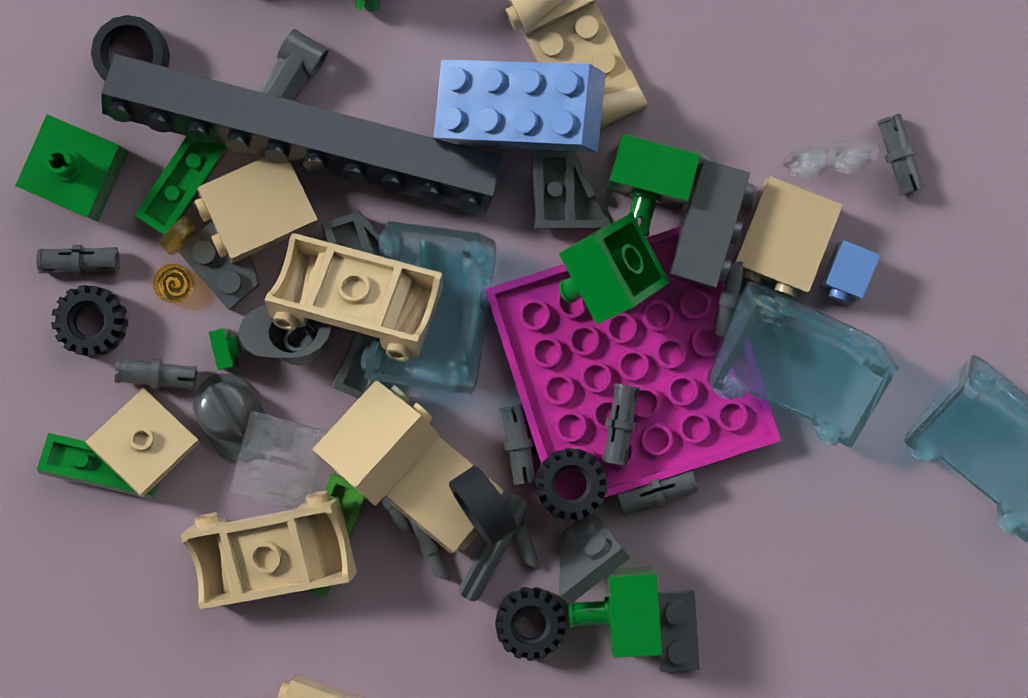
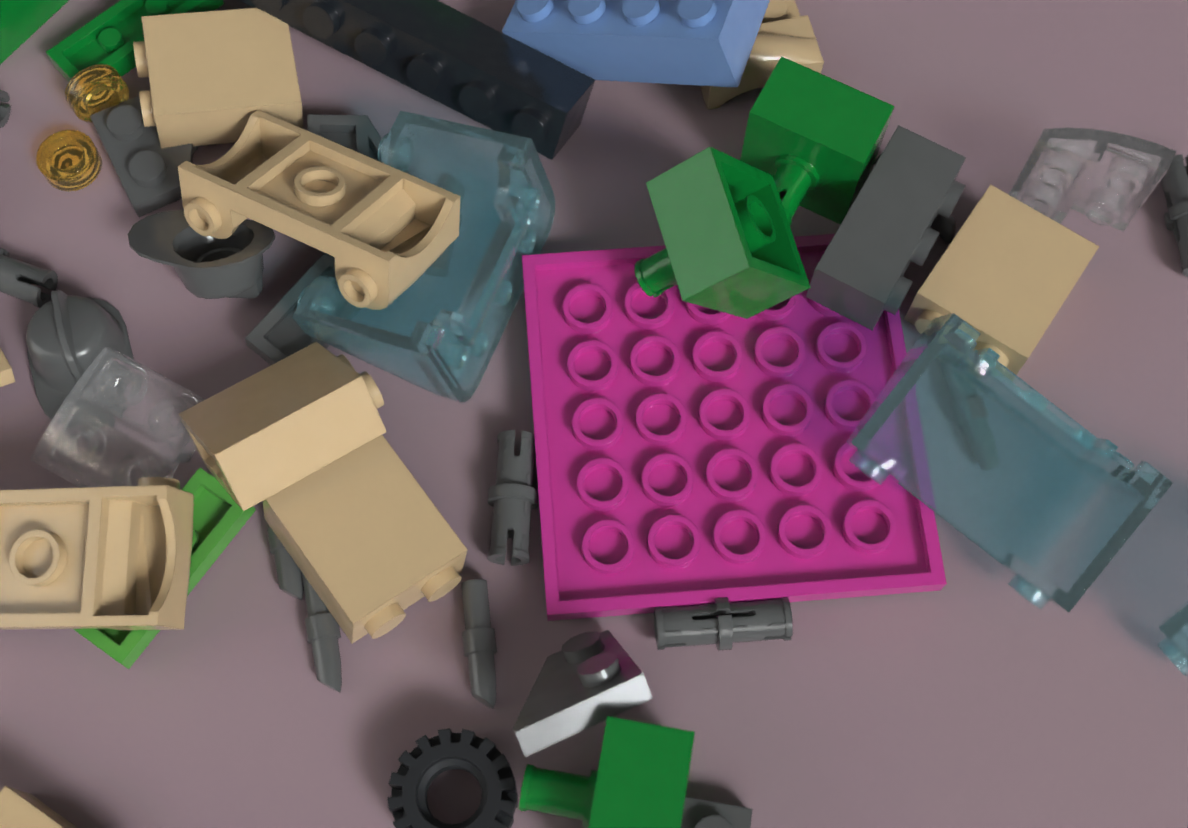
camera: 10 degrees right, 20 degrees down
(225, 348) = (104, 254): green plate -> none
(483, 505) = (422, 542): black tyre -> none
(489, 555) = (425, 650): dark grey axle -> none
(563, 193) = (663, 136): dark grey wing -> none
(588, 501) = (572, 525): black tyre -> none
(620, 424) = (685, 491): dark grey pin -> none
(729, 298) = (898, 339): dark grey piece -> none
(849, 272) = (1094, 353): medium blue brick -> none

